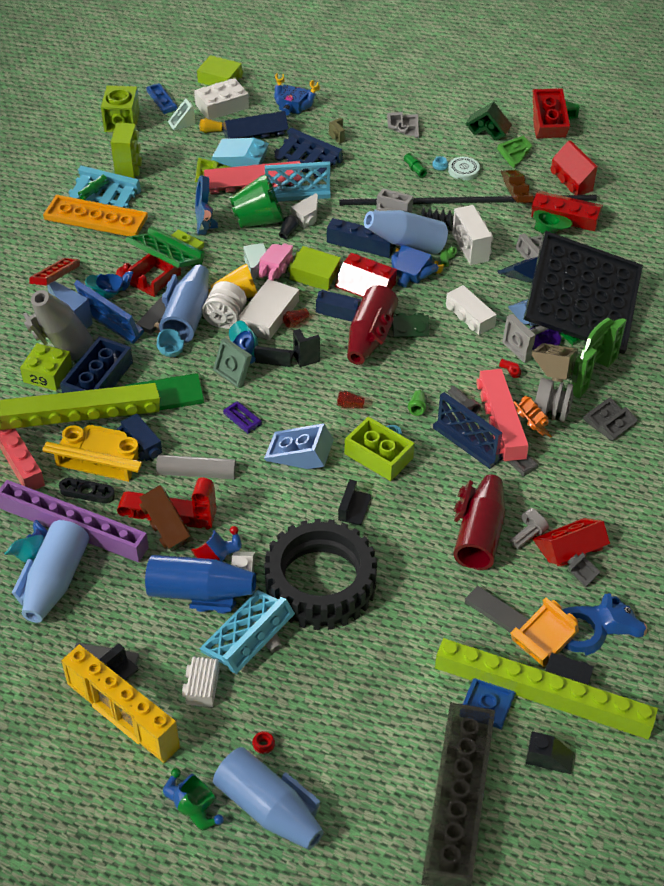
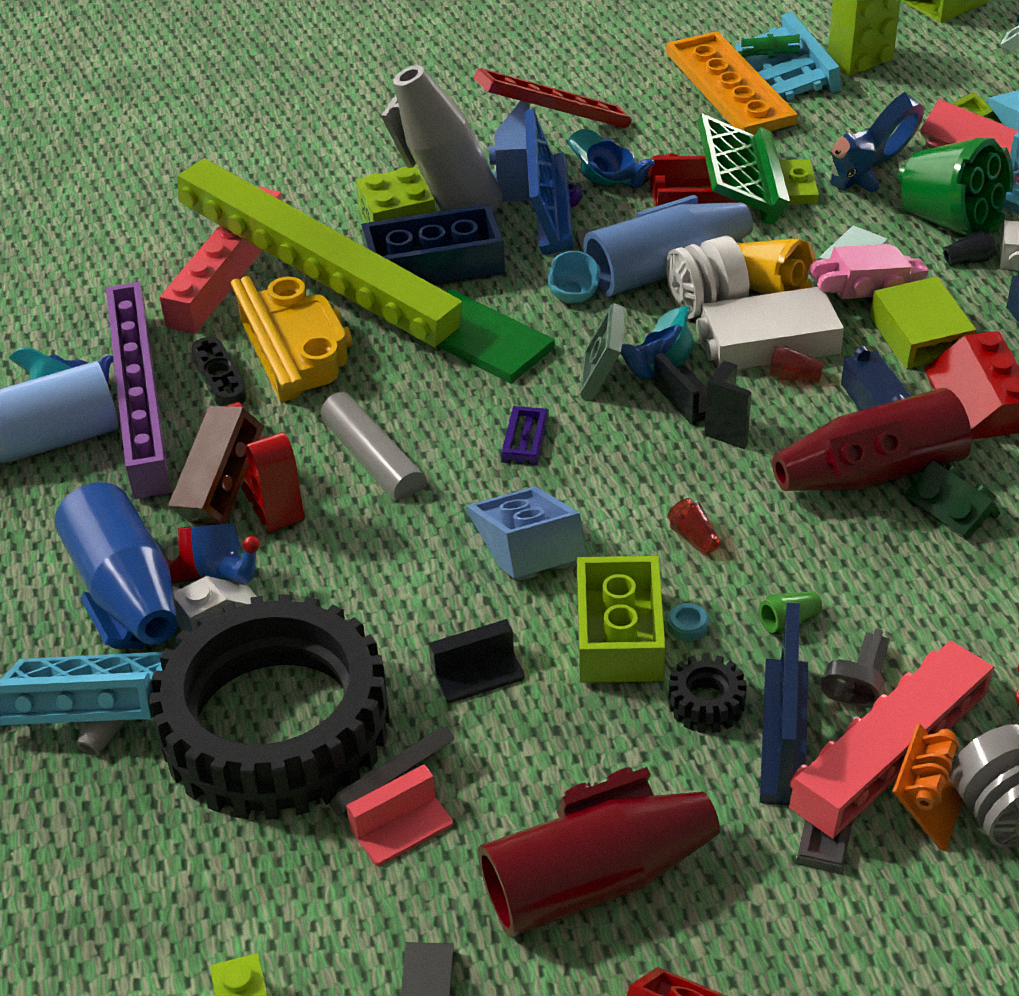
camera: 55 degrees right, 5 degrees down
(148, 443) = (364, 359): dark blue brick -> none
(385, 558) = (393, 768): none -> dark grey tile
(407, 570) = (398, 816): none -> coral panel
(433, 441) = (703, 711): none -> black tyre
(535, 525) = (684, 953): light grey piece -> none

